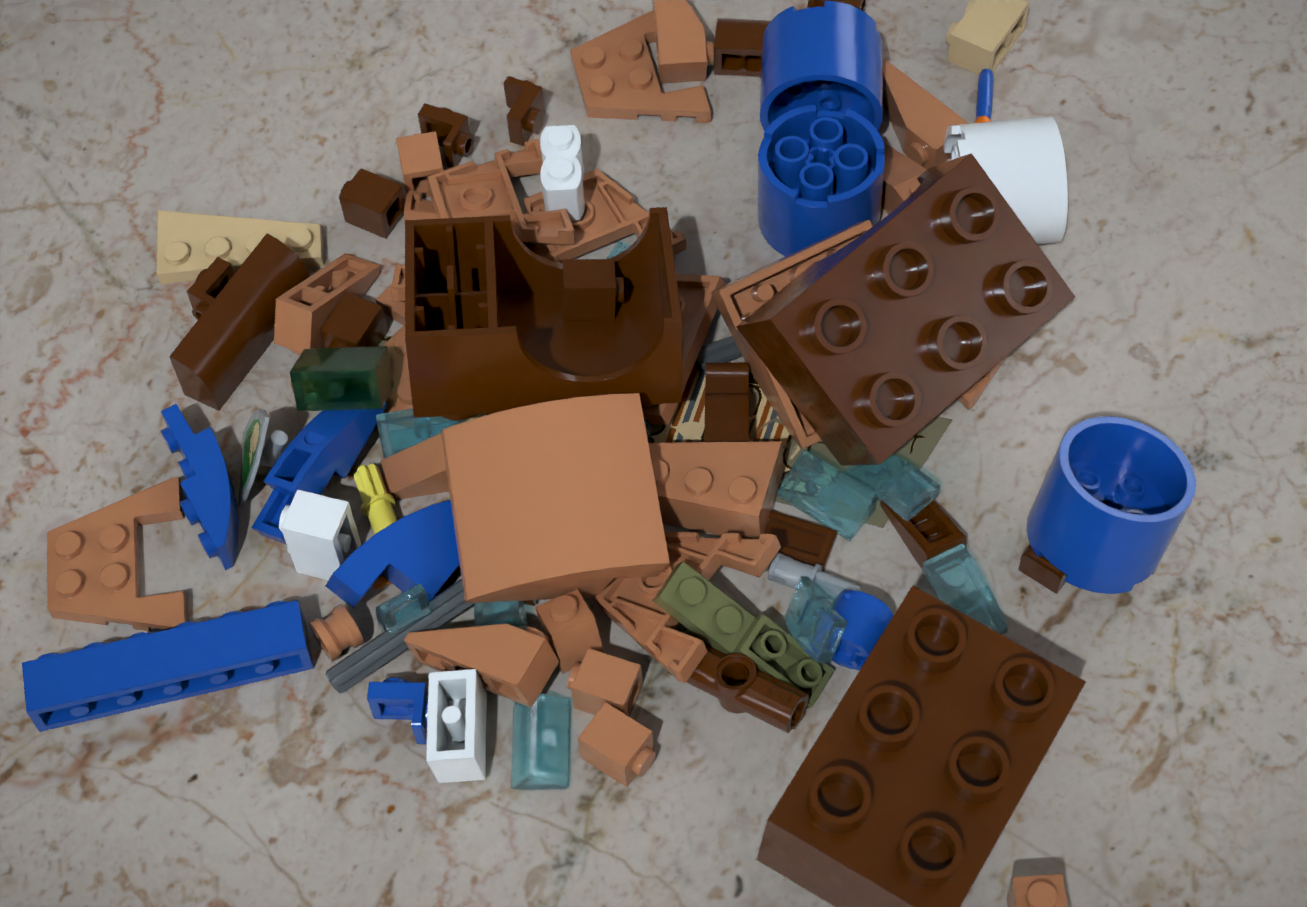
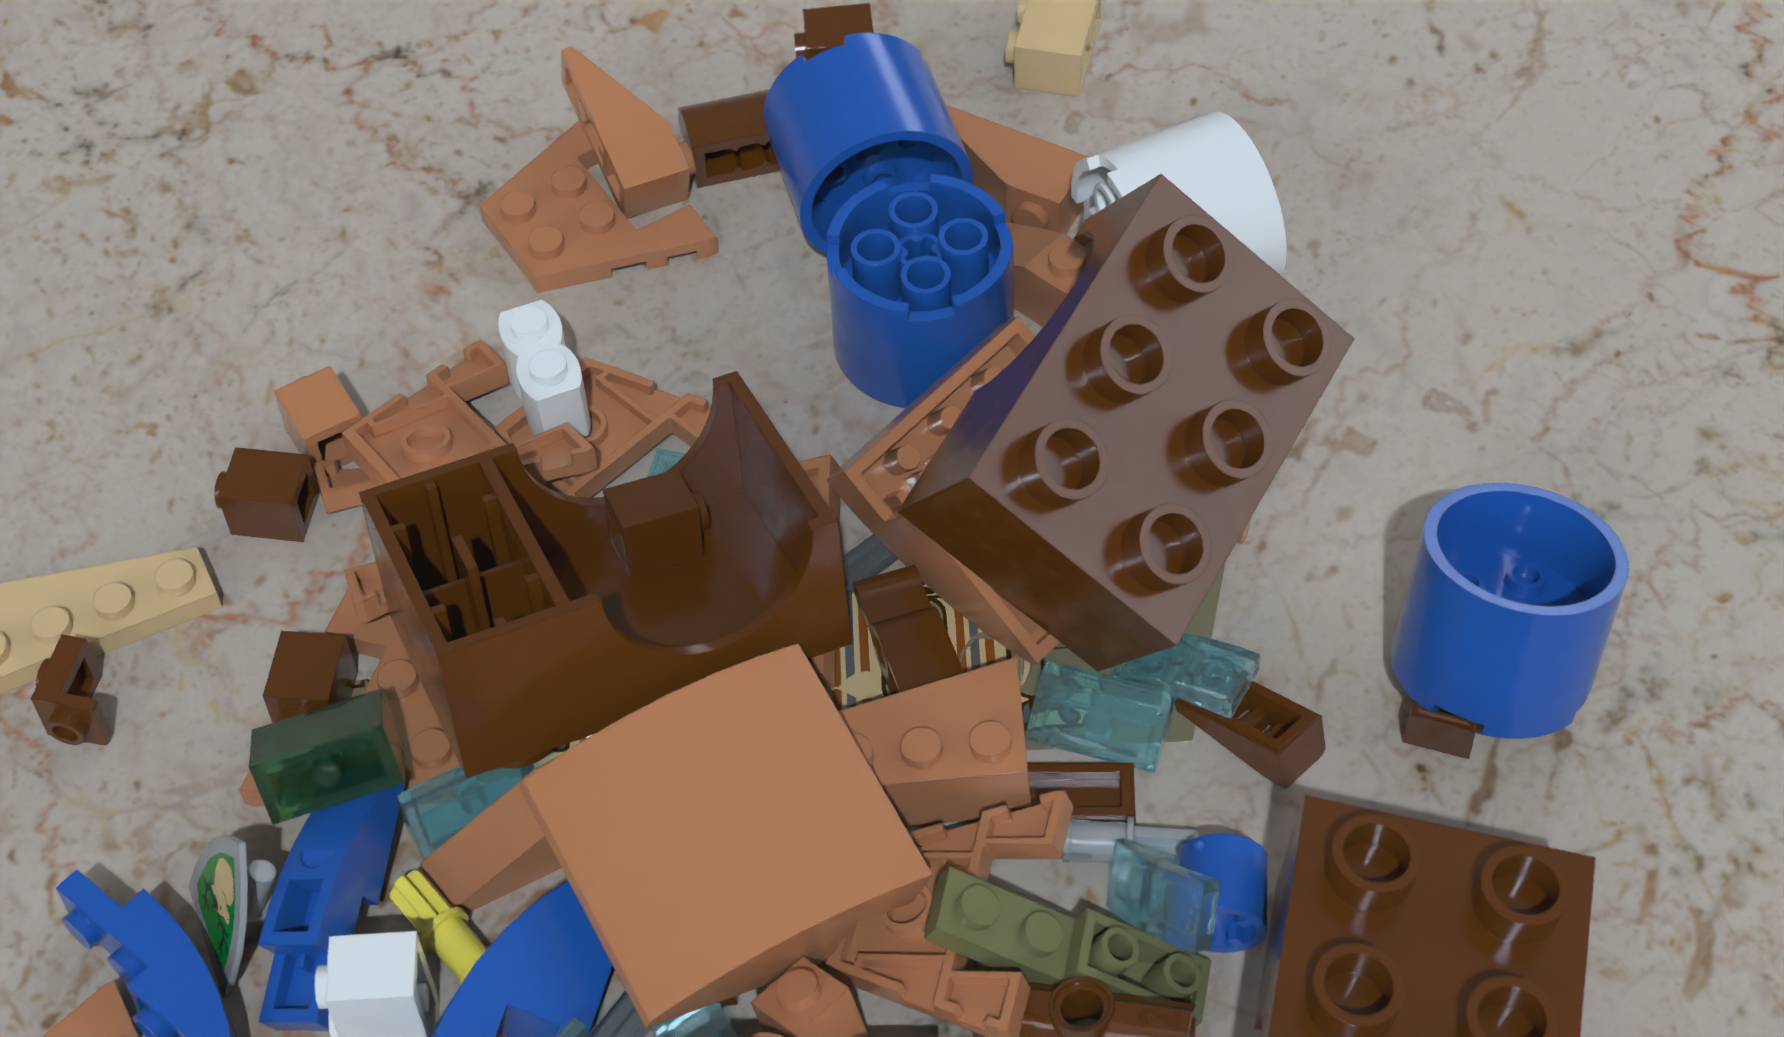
camera: 20 degrees left, 5 degrees down
(236, 324) = (132, 723): reddish brown brick -> none
(309, 304) = (234, 660): nougat slope -> none
(451, 131) = (351, 359): reddish brown bracket -> none
(526, 109) = (447, 296): reddish brown bracket -> none
(964, 587) = (1335, 772): clear light blue slope -> none
(984, 96) = (1086, 119): blue piece -> none

